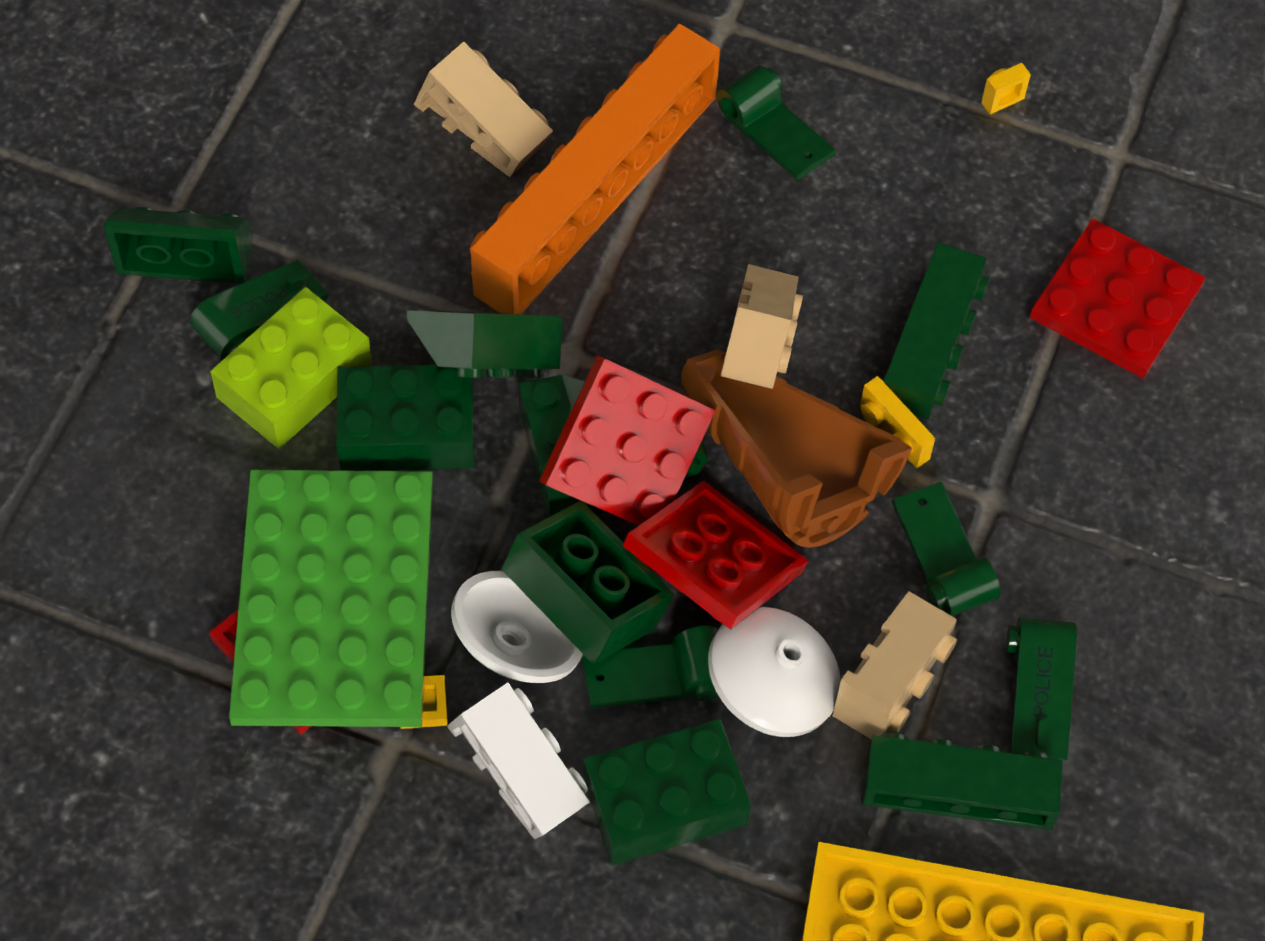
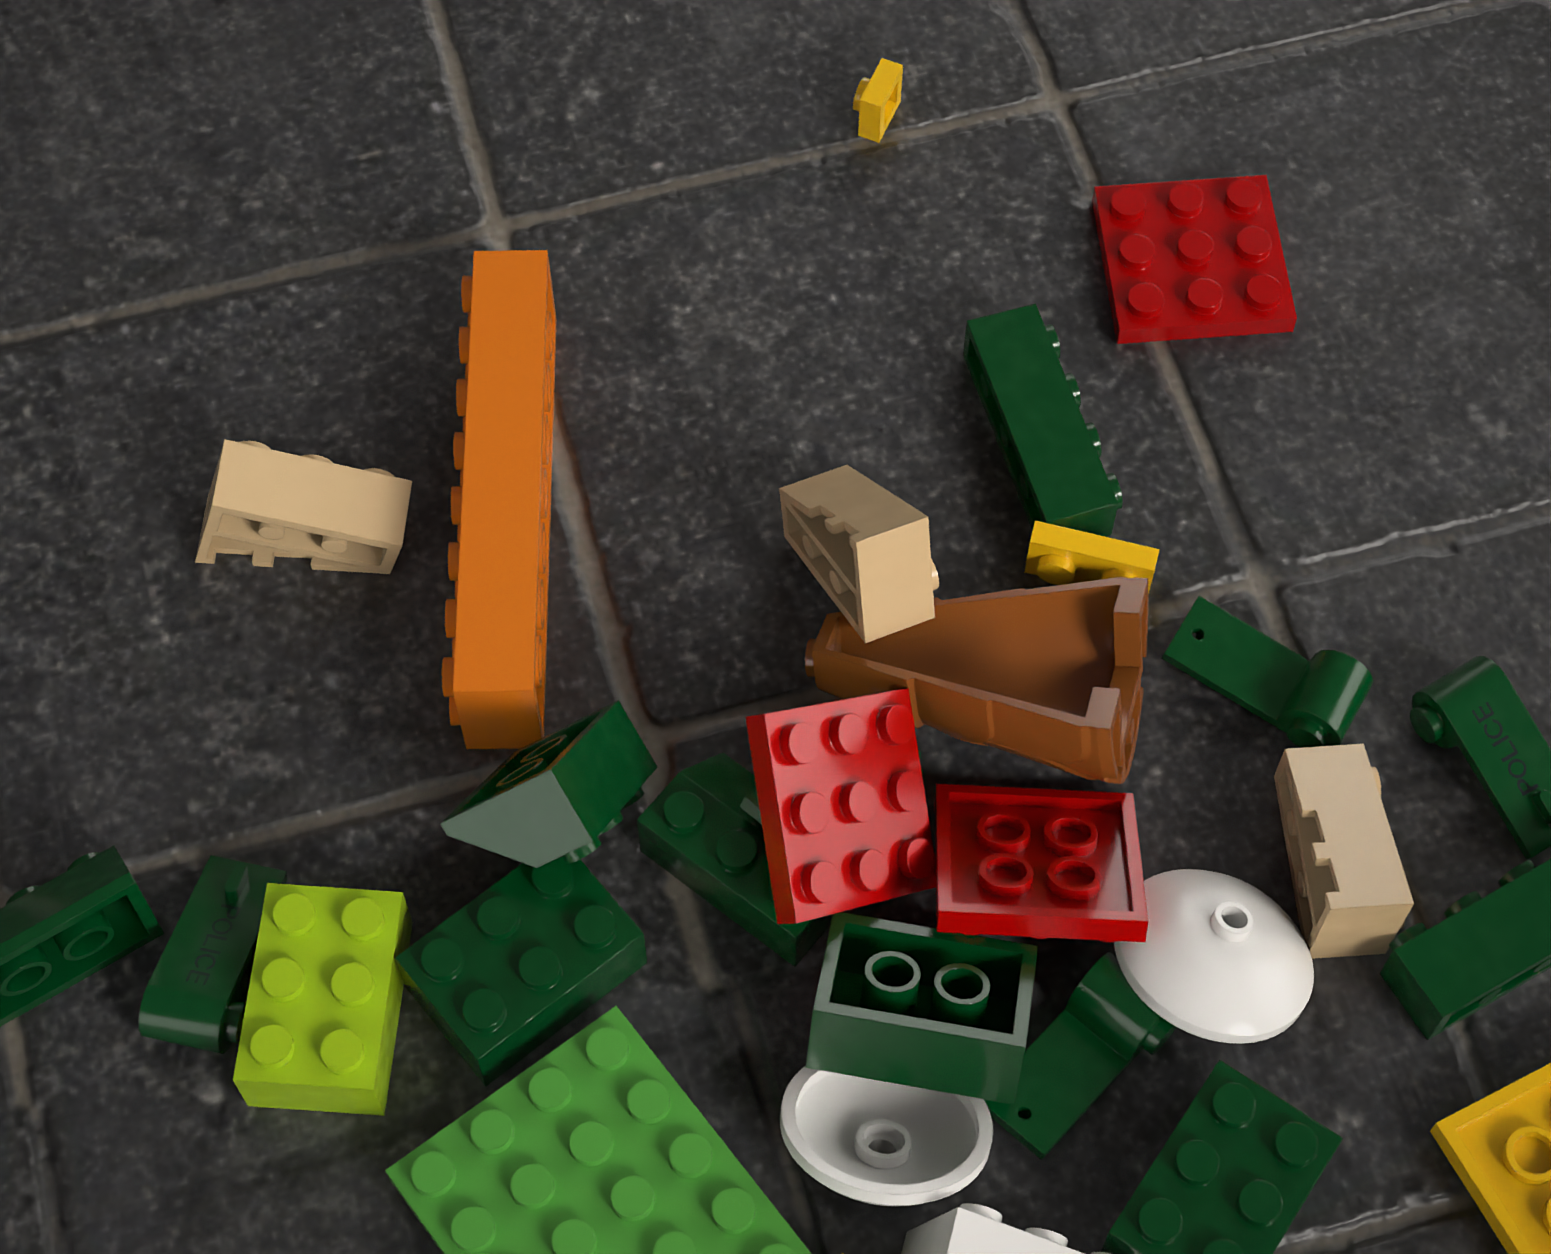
camera: 35 degrees left, 0 degrees up
(757, 111) = (617, 303): dark green door -> none

